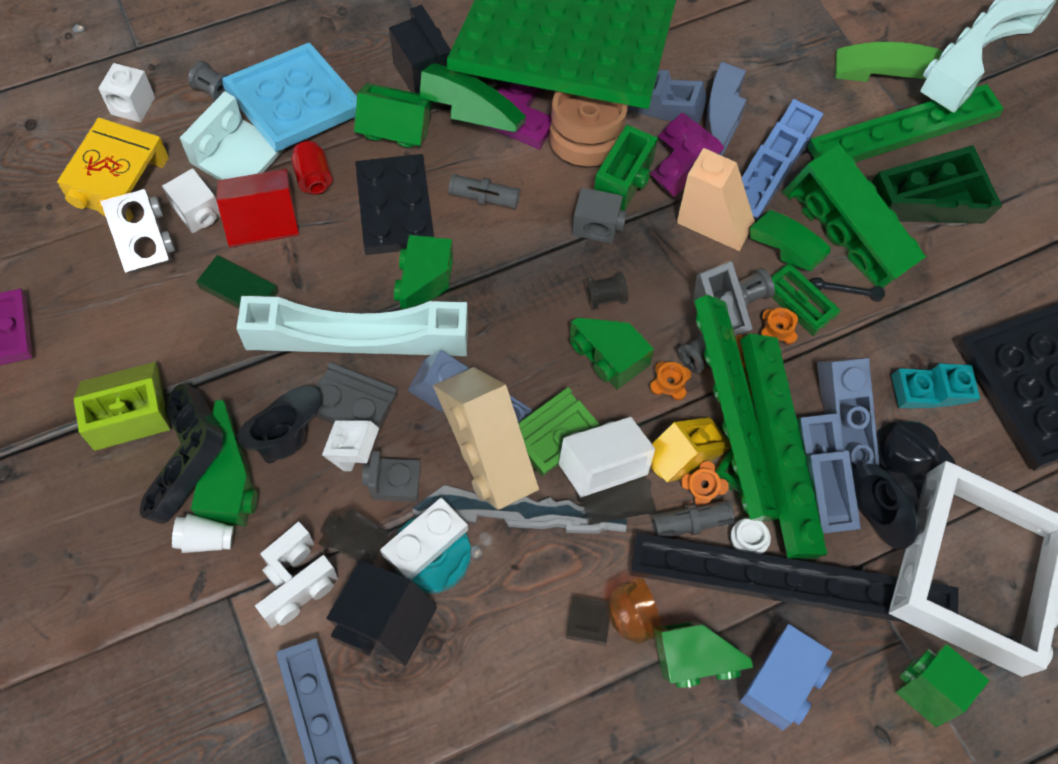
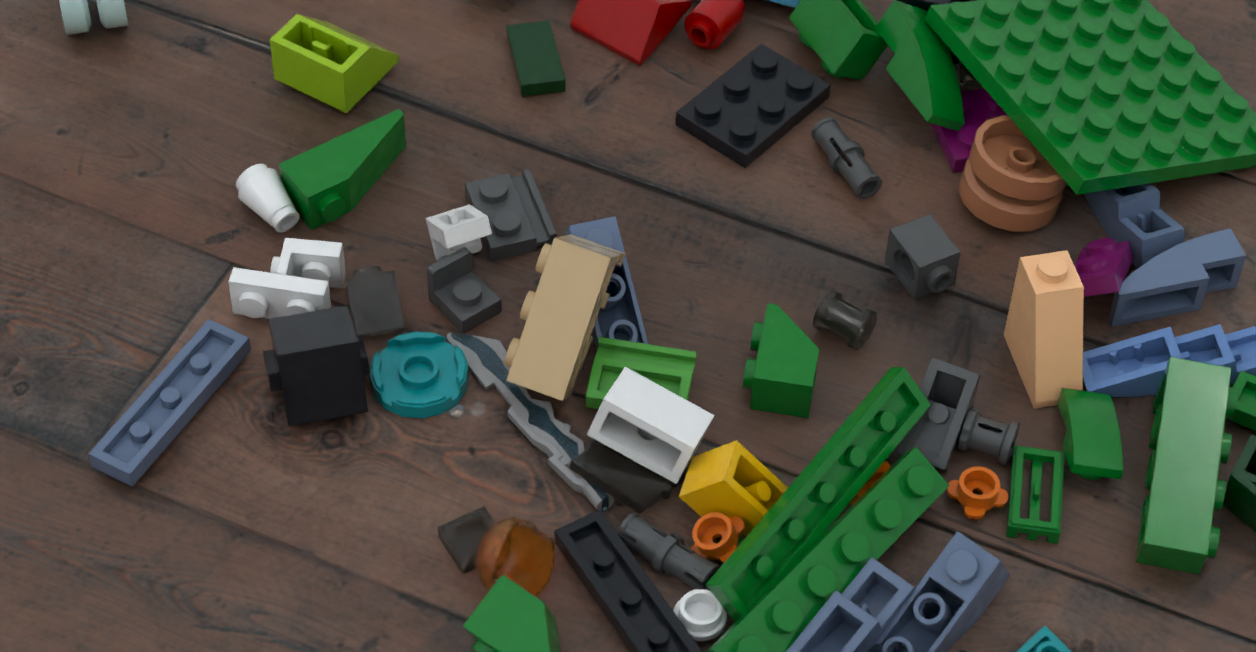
camera: 50 degrees right, 15 degrees down
(199, 446) = (340, 123): black beam -> none
(282, 426) = (421, 179): black piece -> none
(289, 326) = (522, 104): light aqua arch -> none
(424, 539) = (421, 351): white plate -> none
(425, 270) = (699, 170): green slope -> none
(627, 164) = (999, 233): green brick -> none
(674, 371) = (800, 428): orange plate -> none
(876, 293) = (1125, 558): black hinge -> none

